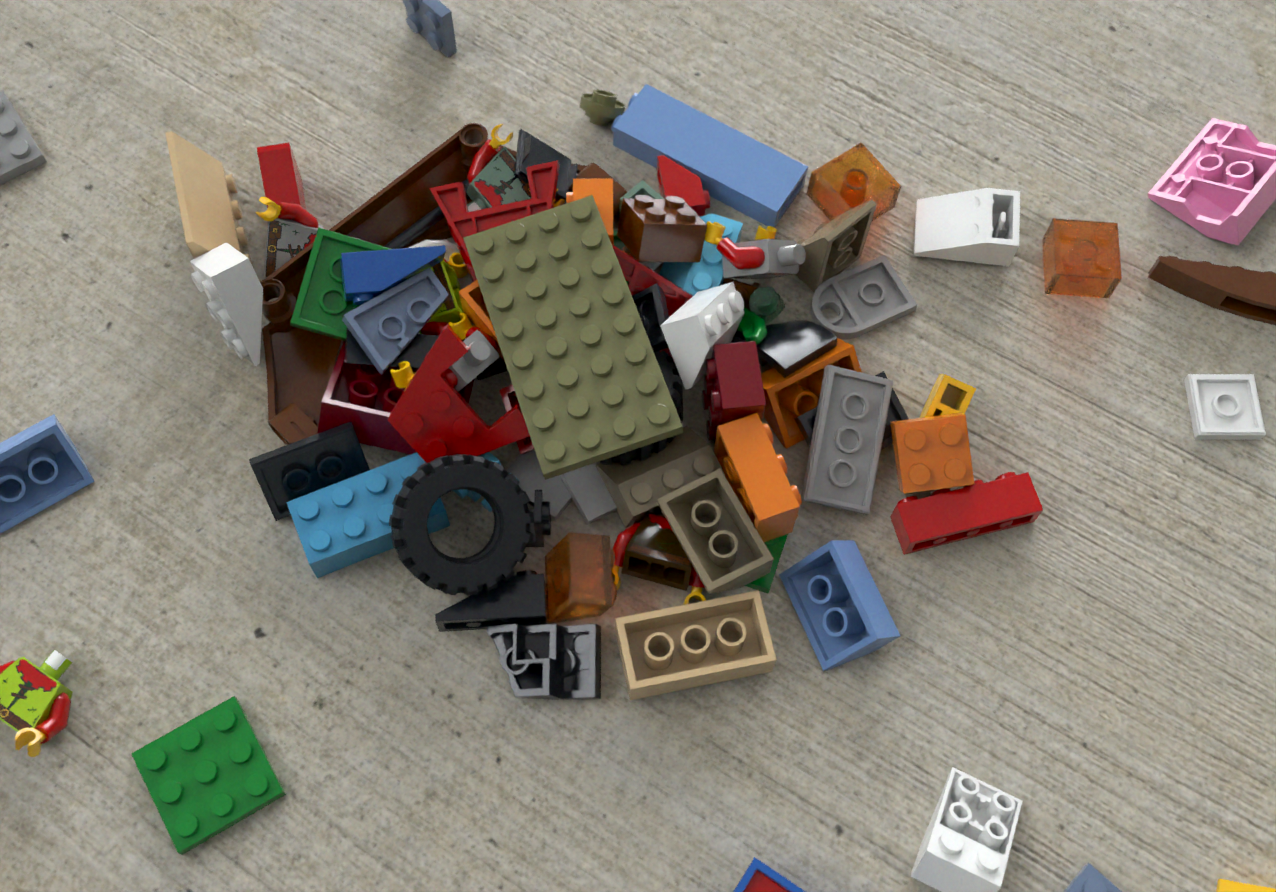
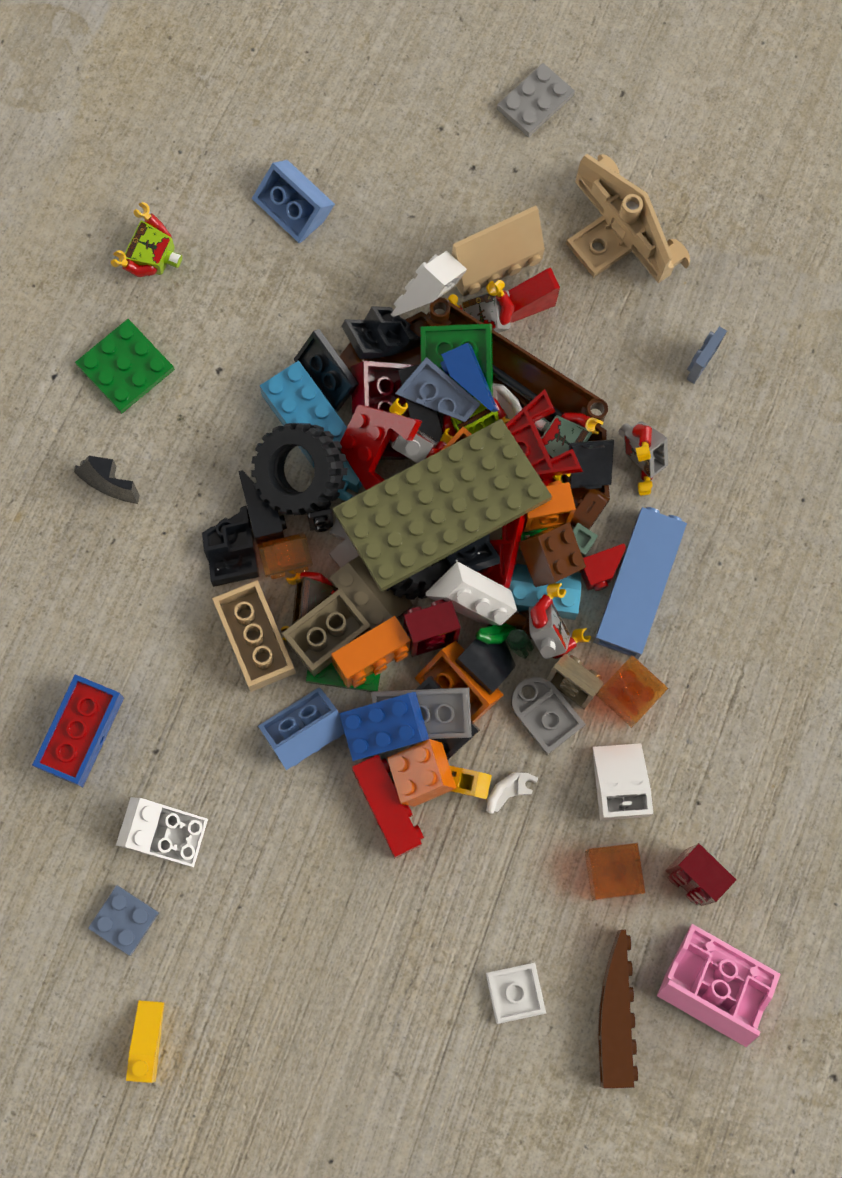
camera: 75 degrees right, 10 degrees up
(215, 60) = (626, 223): none -> tan piece
(278, 388) = (380, 334): none -> black slope
(391, 831) = (100, 475): none -> black slope
(538, 106) = (647, 450): none -> torso
(601, 107) = (663, 496): olive plate -> none
(860, 486) = (384, 726): none -> blue brick
(954, 361) = (508, 787): none -> white piece
(1104, 155) = (700, 875): none -> dark red brick

